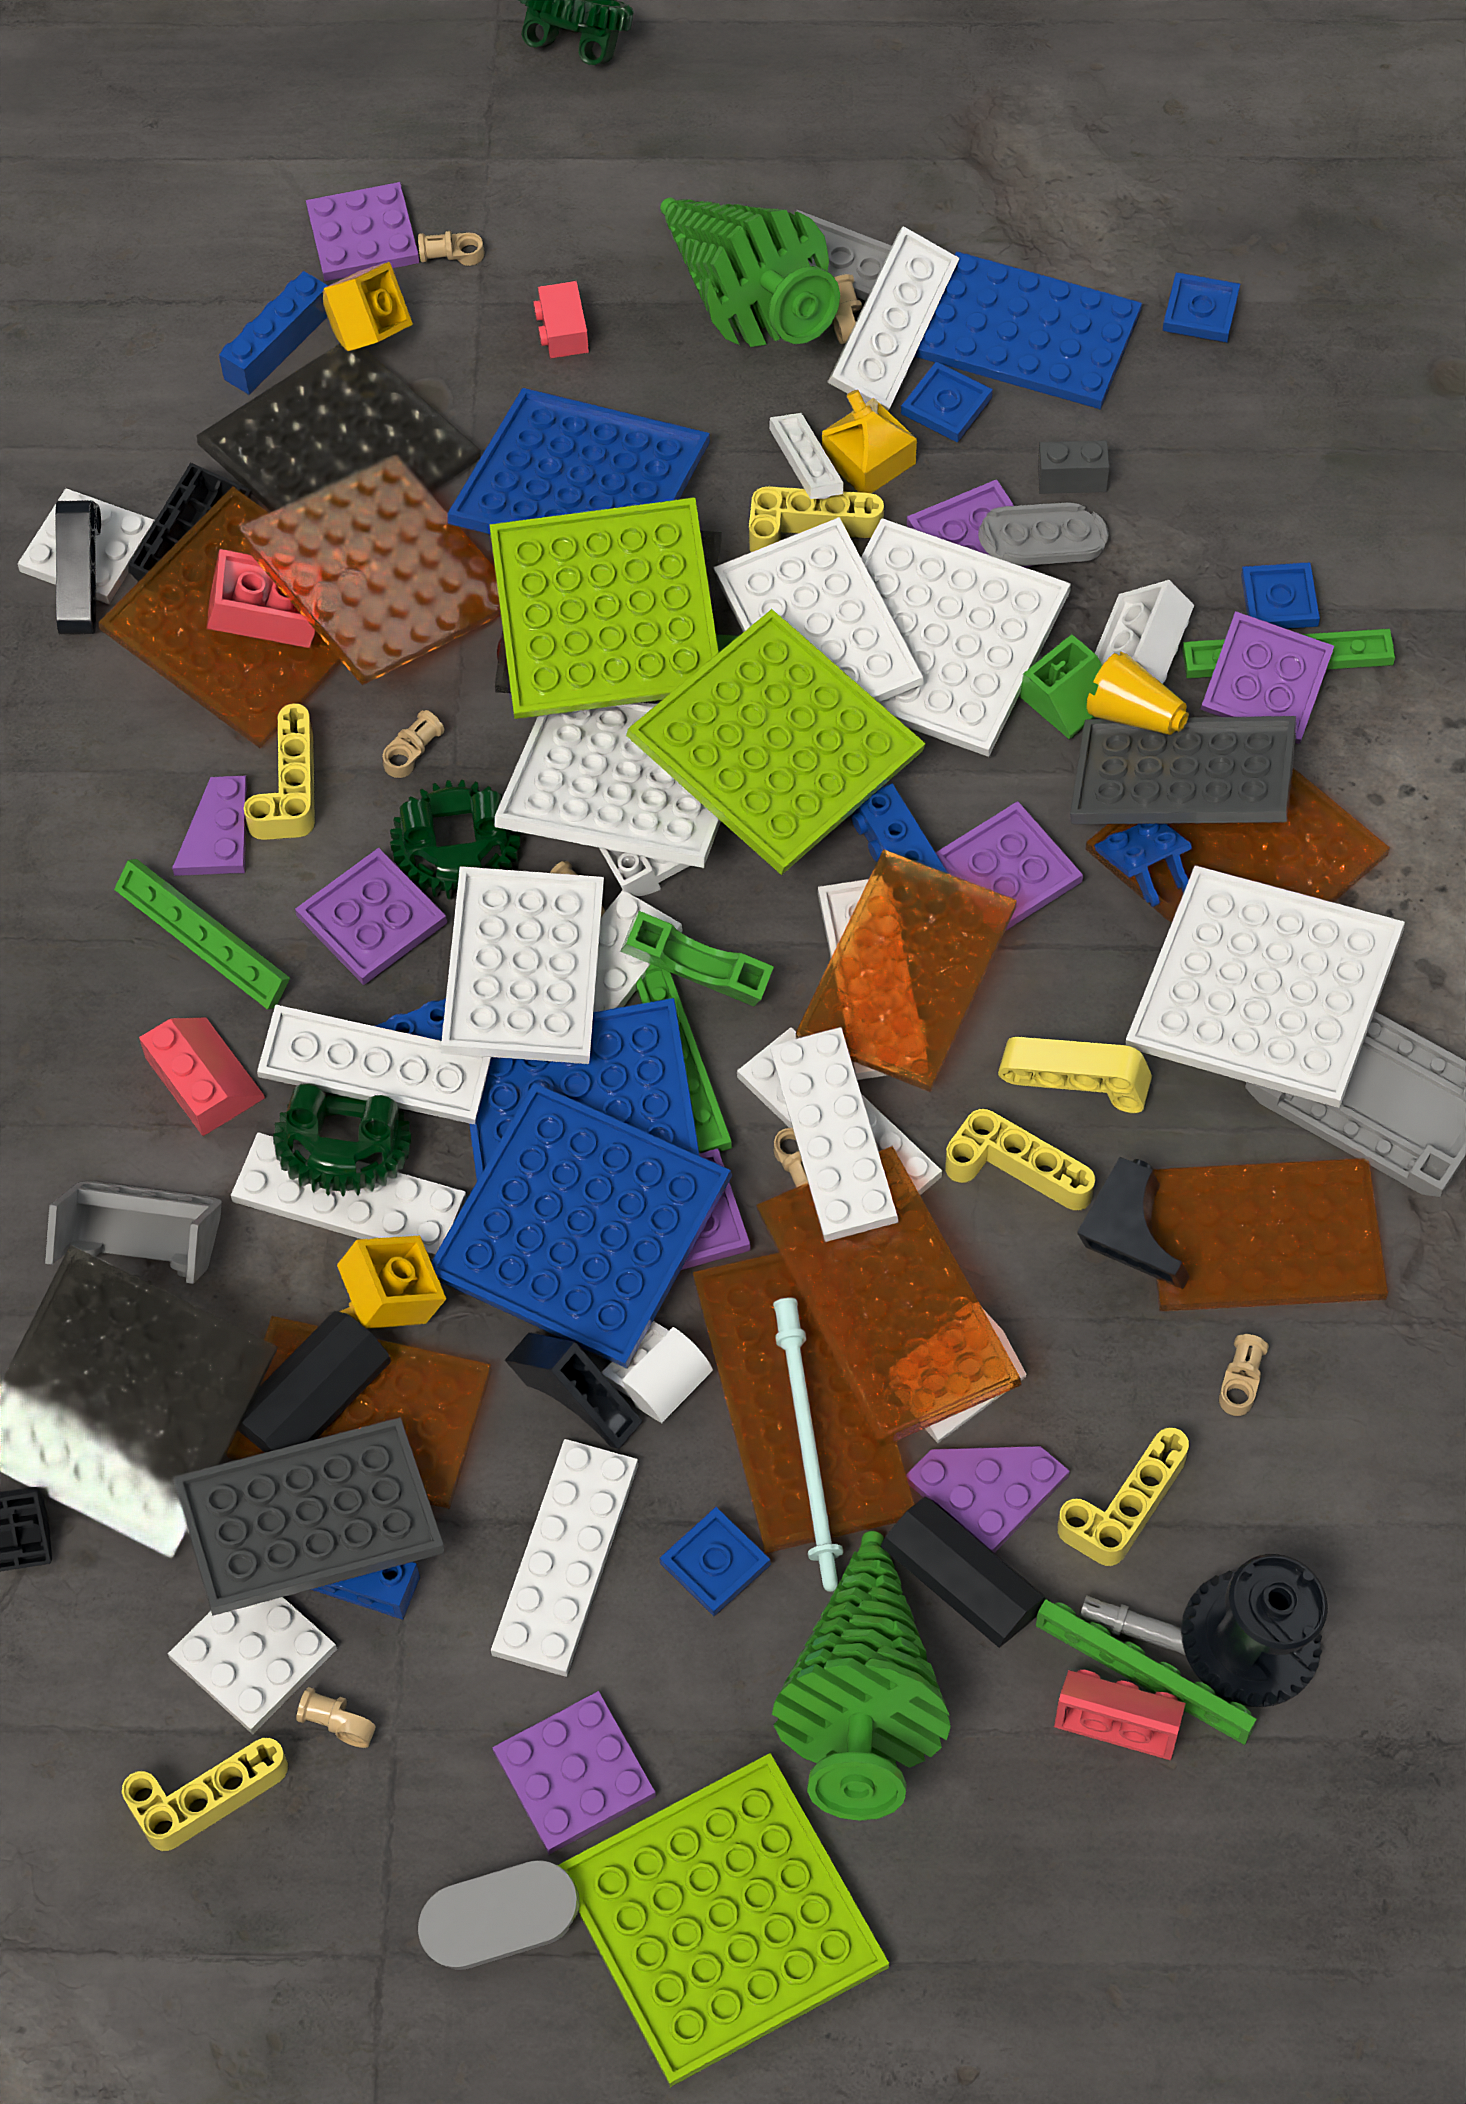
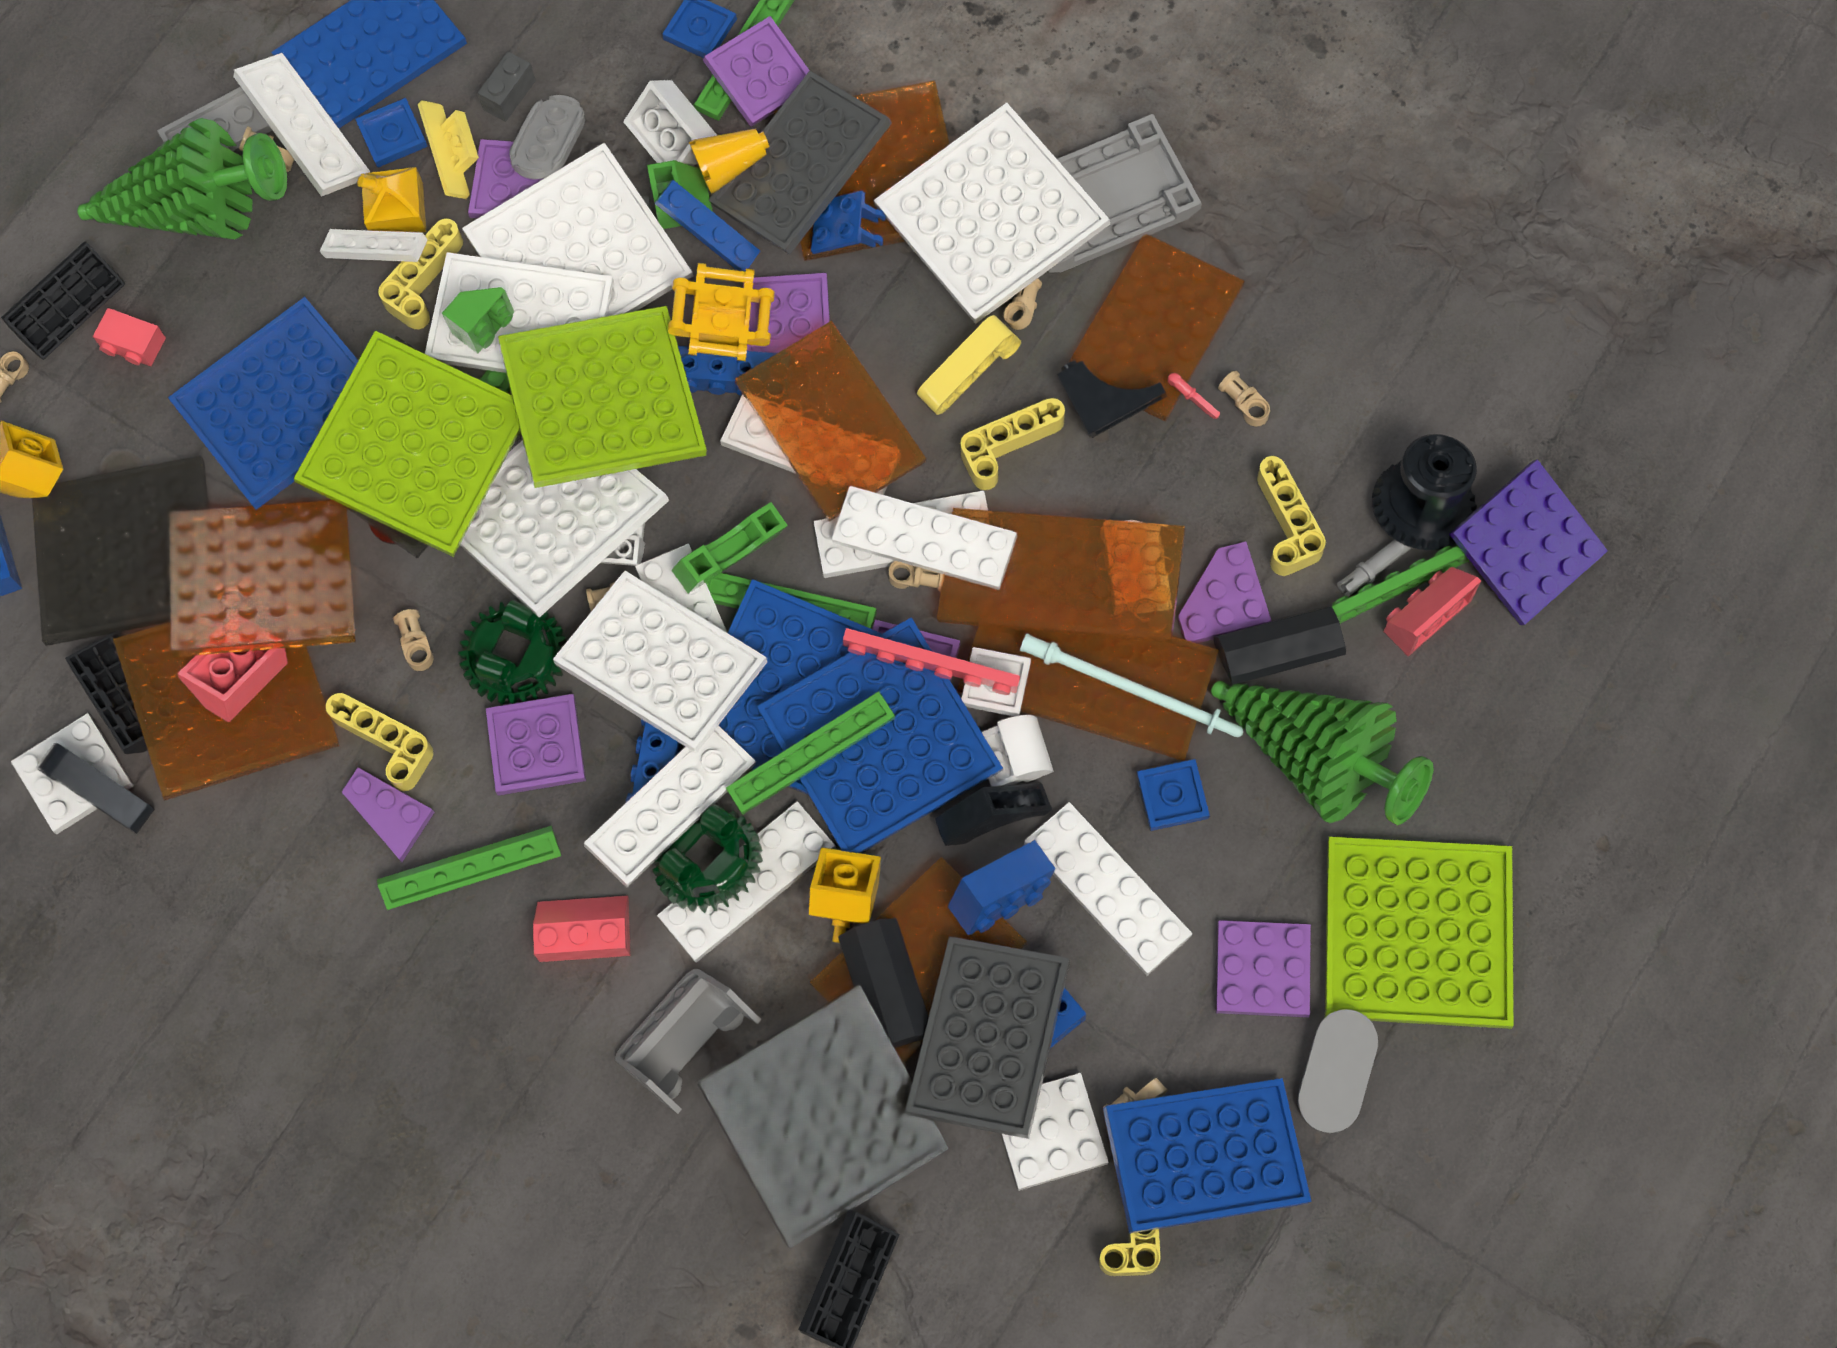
camera: 55 degrees left, 10 degrees up
(312, 1822) = (1206, 1155): none -> blue plate
(483, 1435) = (1001, 888): none -> blue brick
(514, 1161) = (810, 753): none -> bright green plate
(560, 243) = (63, 301): none -> black piece
(692, 1230) = (920, 658): none -> coral plate
(720, 1302) = (983, 696): none -> white plate
(780, 579) = (478, 316): none -> bright green slope
(953, 797) = (721, 313): none -> yellow brick
(966, 458) = (450, 146): none -> light yellow bracket
(1046, 731) = (707, 226): none -> blue plate
(1189, 1084) = (1024, 302): none -> tan connector
(1205, 1308) = (1190, 393): none -> coral piece
(1278, 1775) = (1528, 542): none -> dark purple plate

